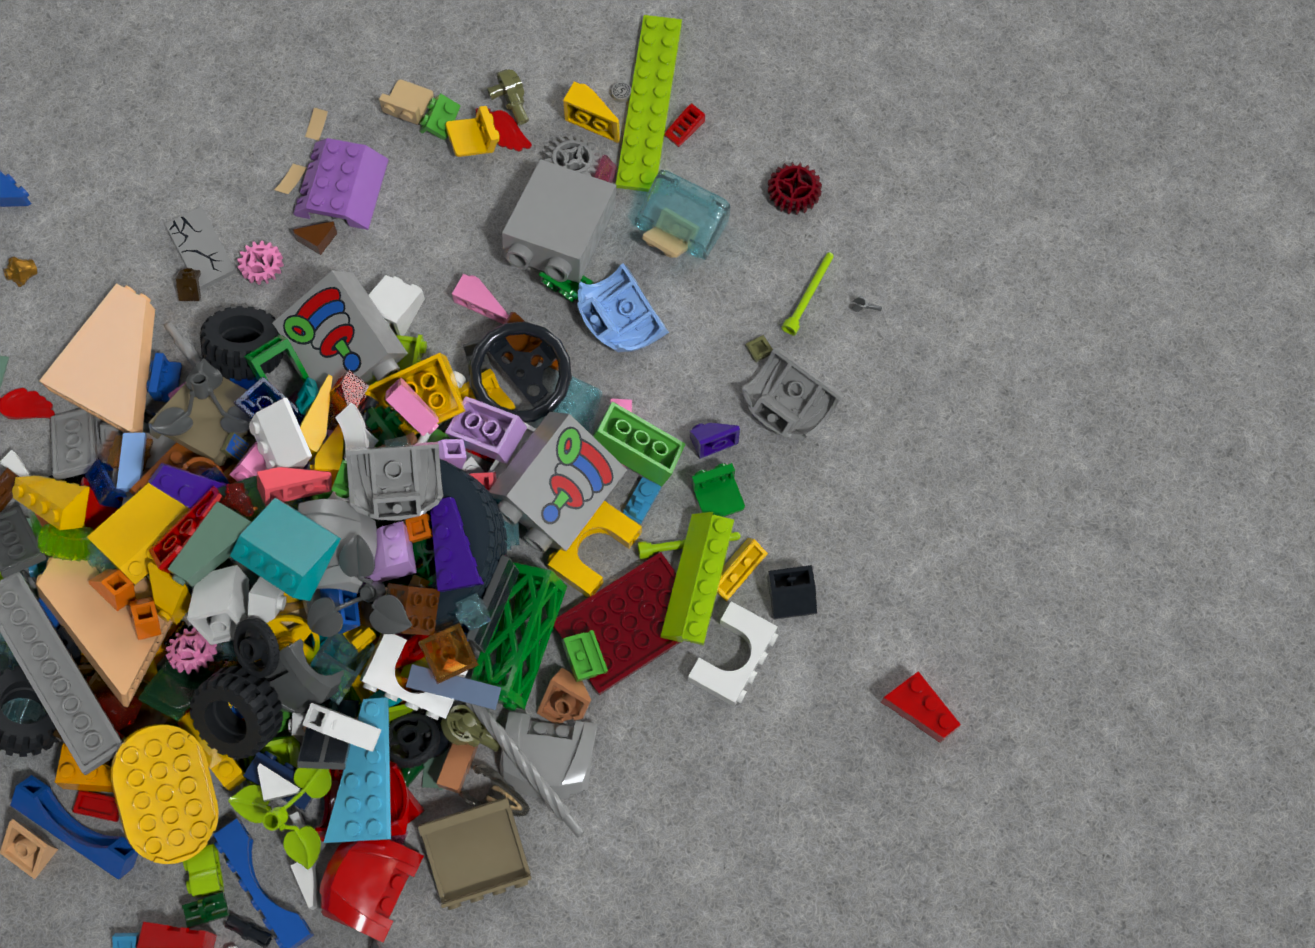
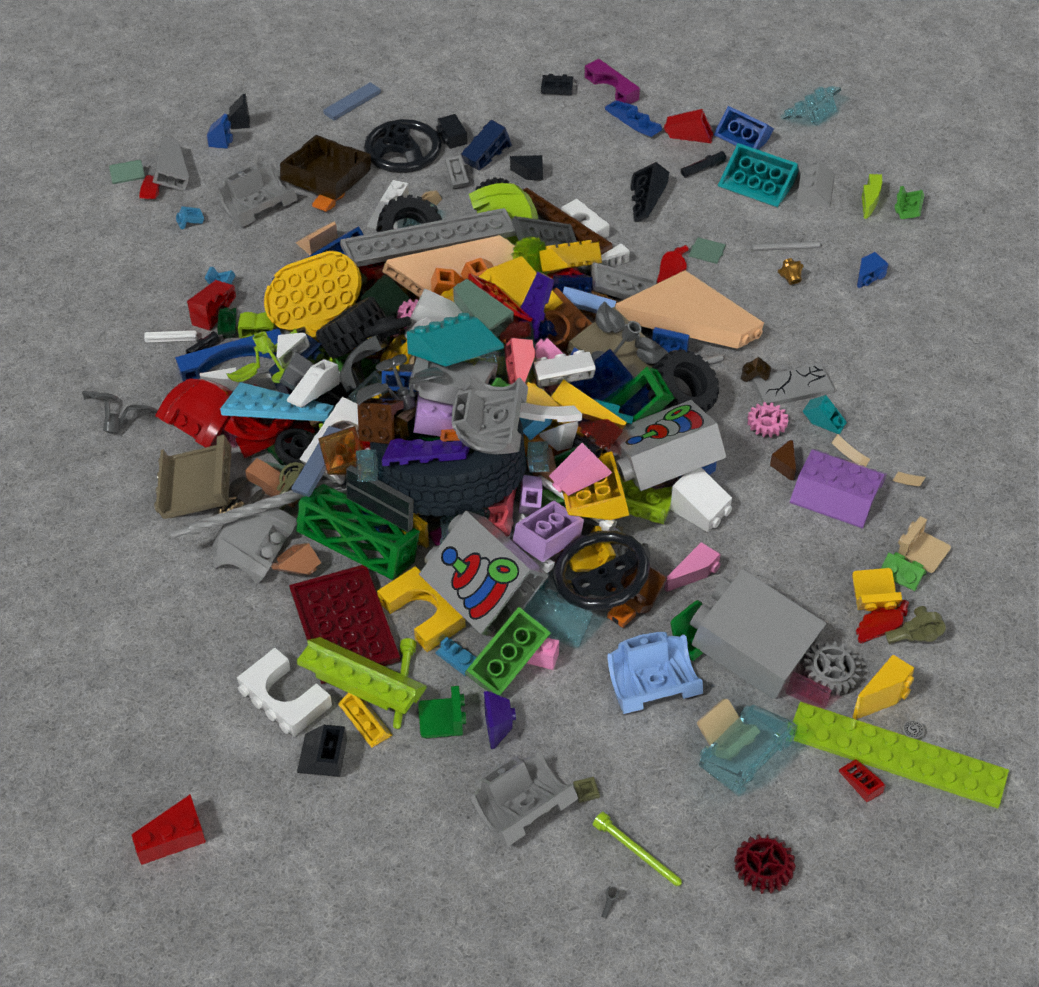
camera: 105 degrees right, 20 degrees down
(243, 209) = (824, 414): none -> teal slope
(584, 656) = (323, 576): bright green plate -> none

